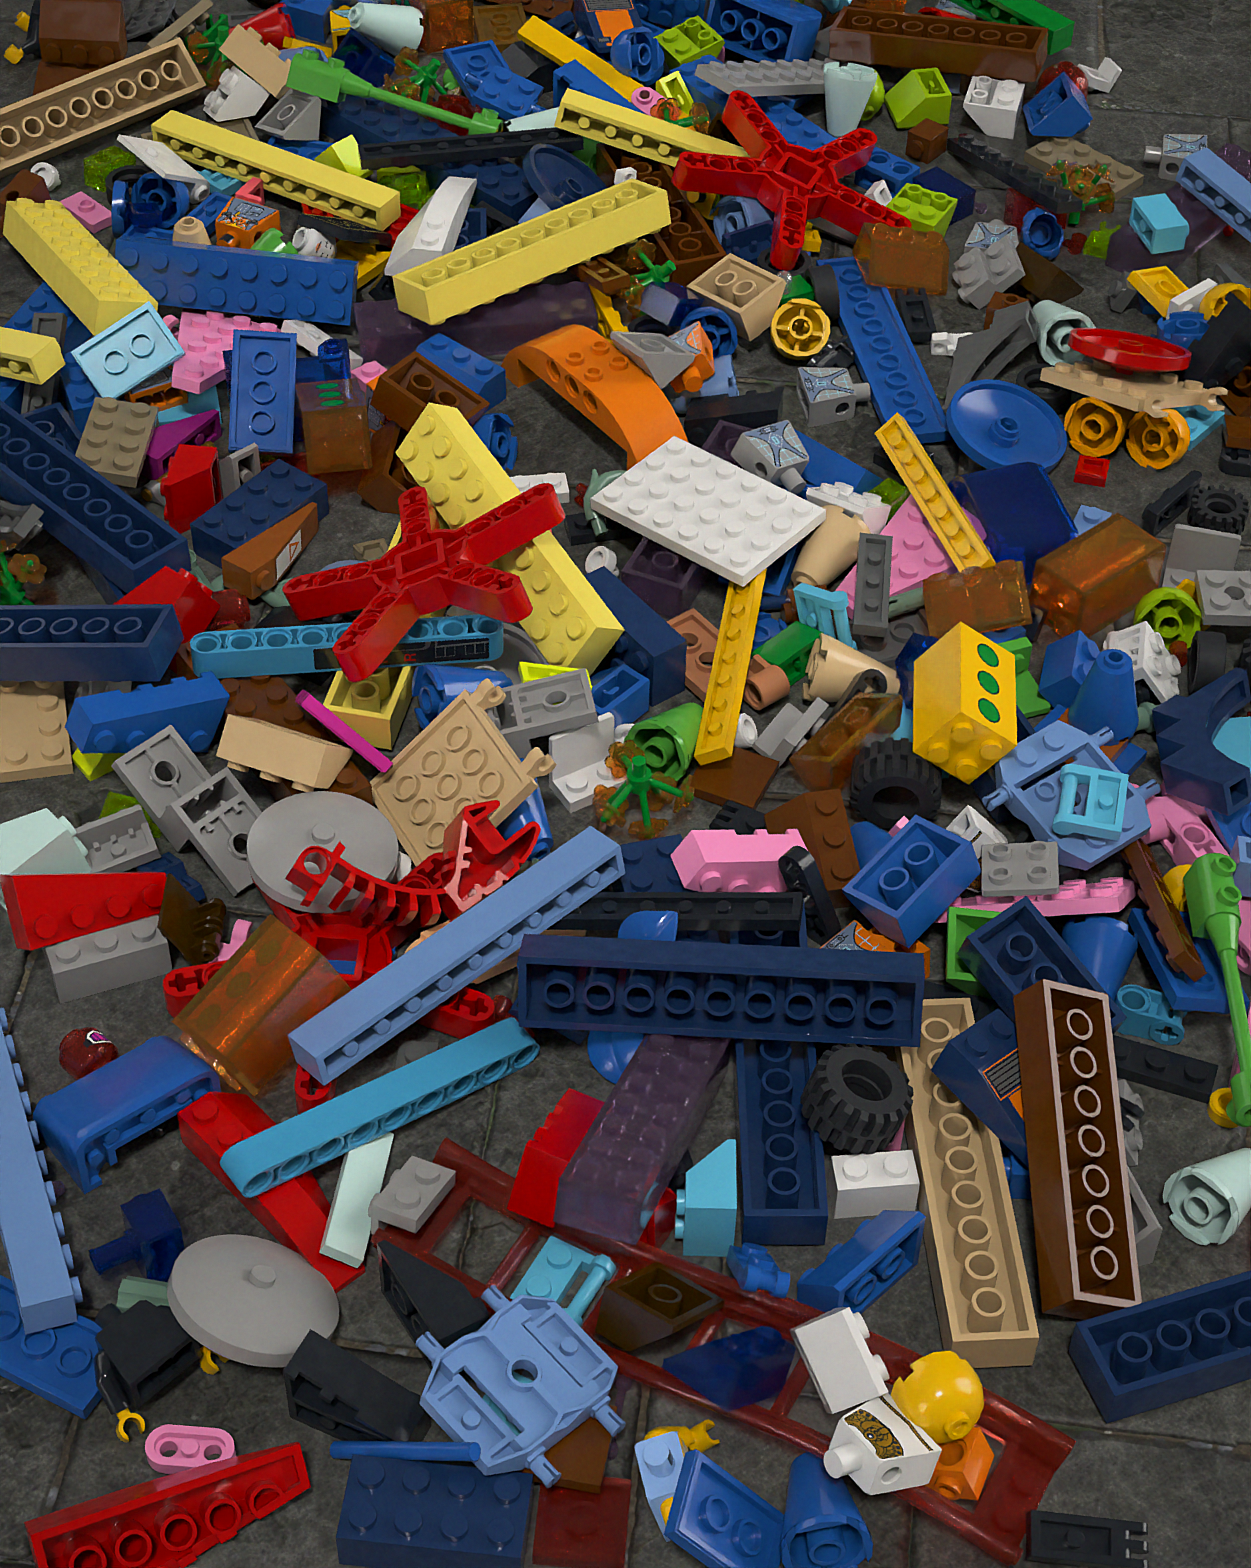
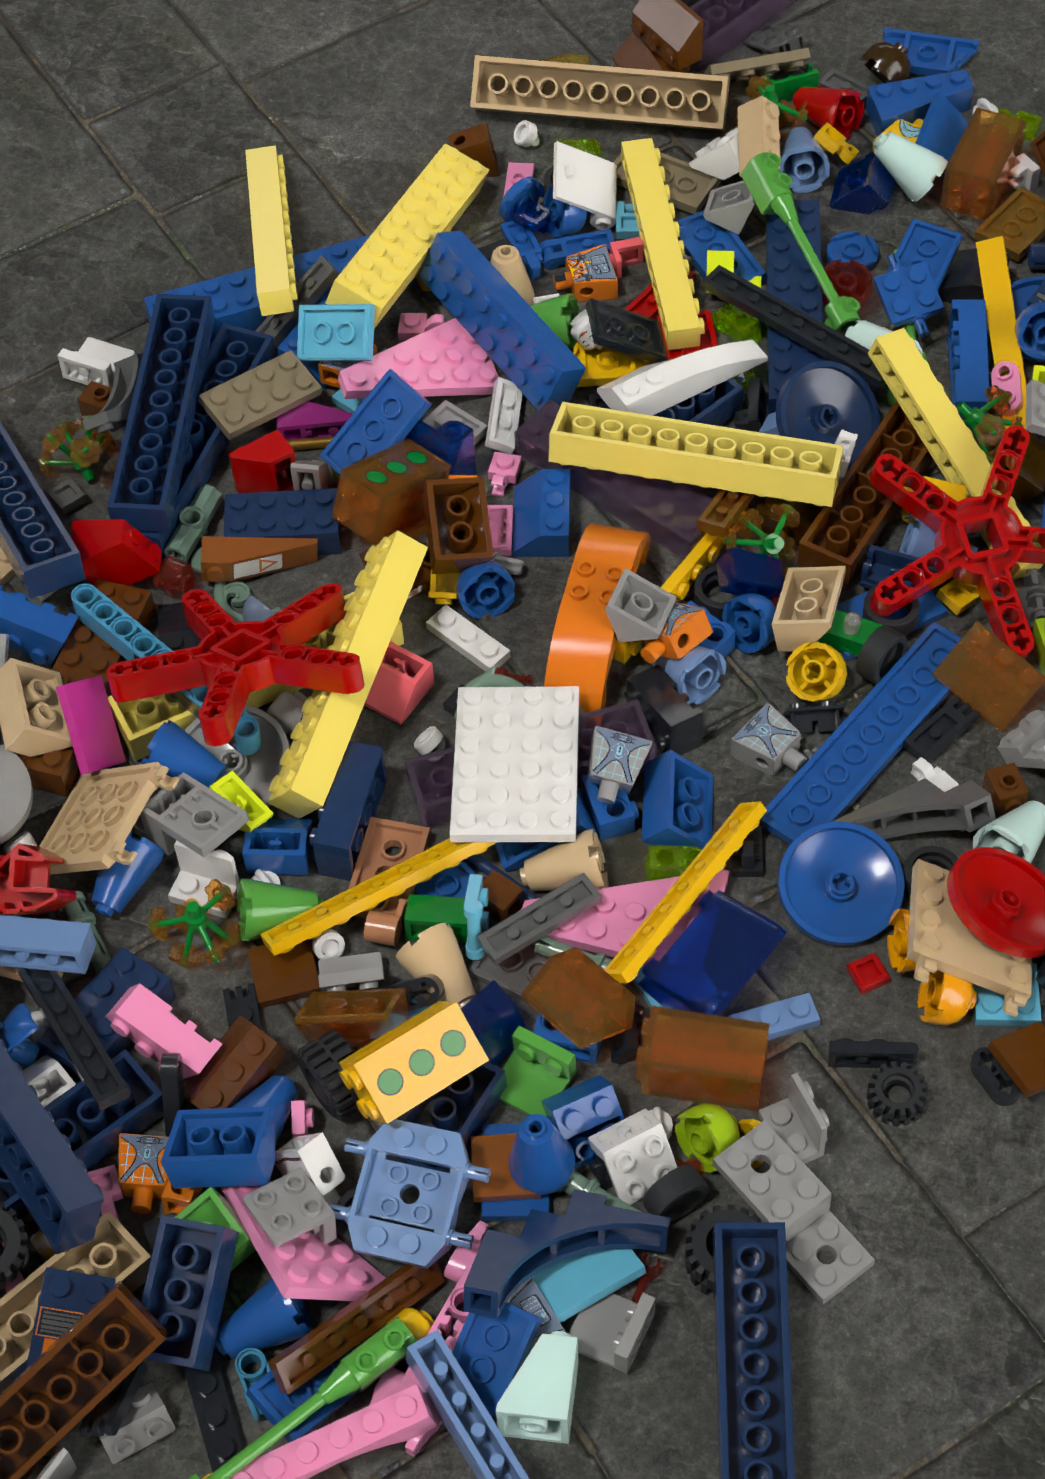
camera: 55 degrees right, 10 degrees up
(418, 86) = (858, 238): plant -> none
(865, 506) = (620, 847): white slope -> none
(1103, 803) = (397, 1218): medium azure plate -> none

